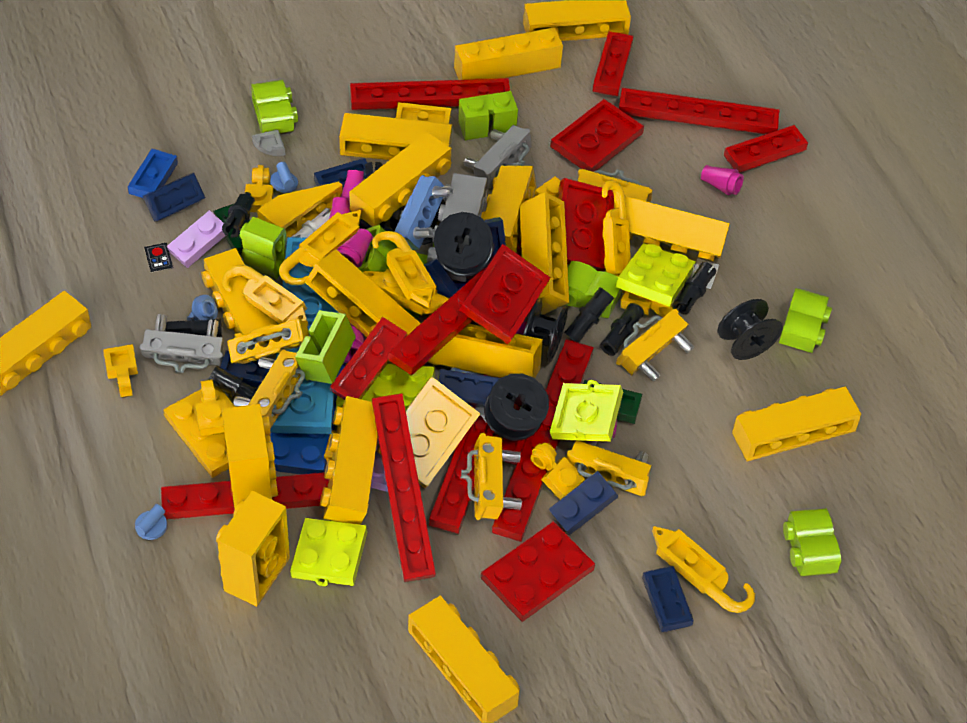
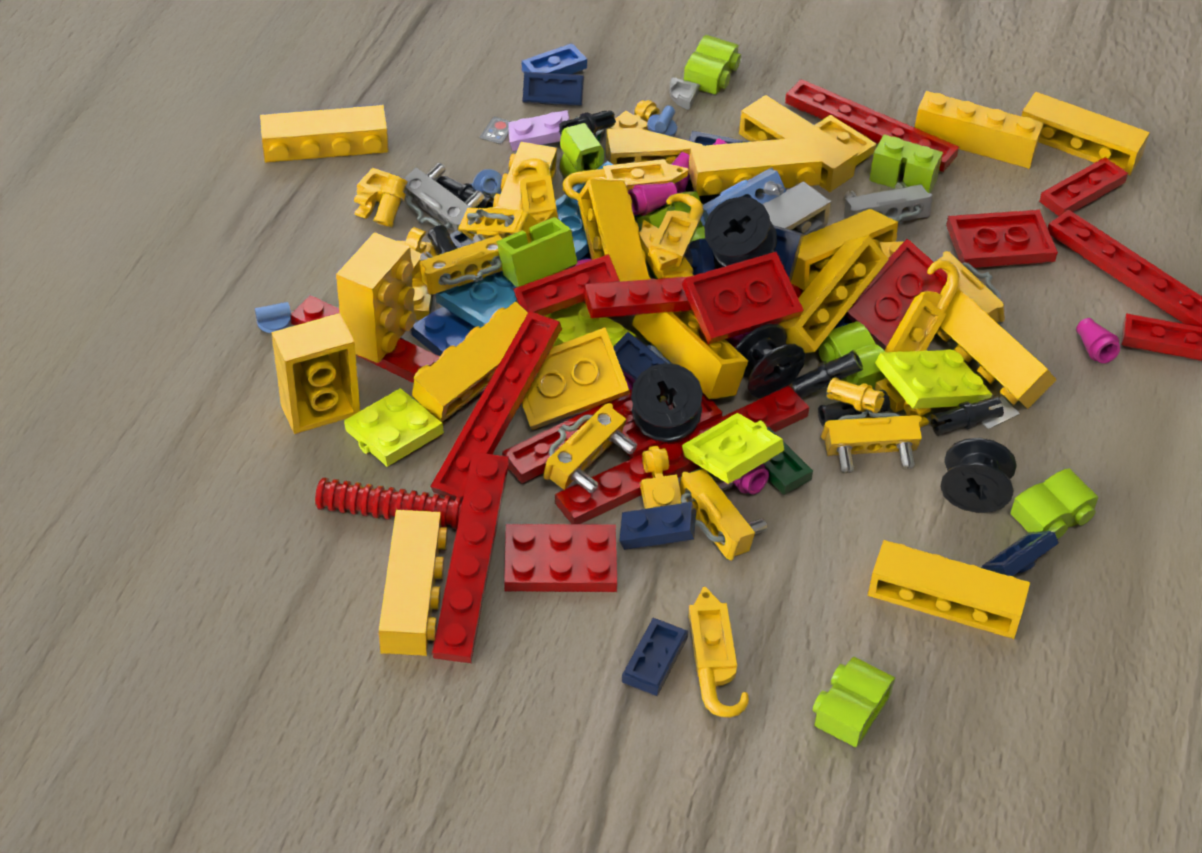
camera: 40 degrees right, 5 degrees down
(148, 369) = (392, 195): none -> yellow pin
(399, 606) = (383, 502): none -> red piece
(489, 612) = (471, 558): none -> red plate
(625, 319) = (861, 397): none -> yellow pin
(815, 369) = (1022, 554): none -> dark blue plate

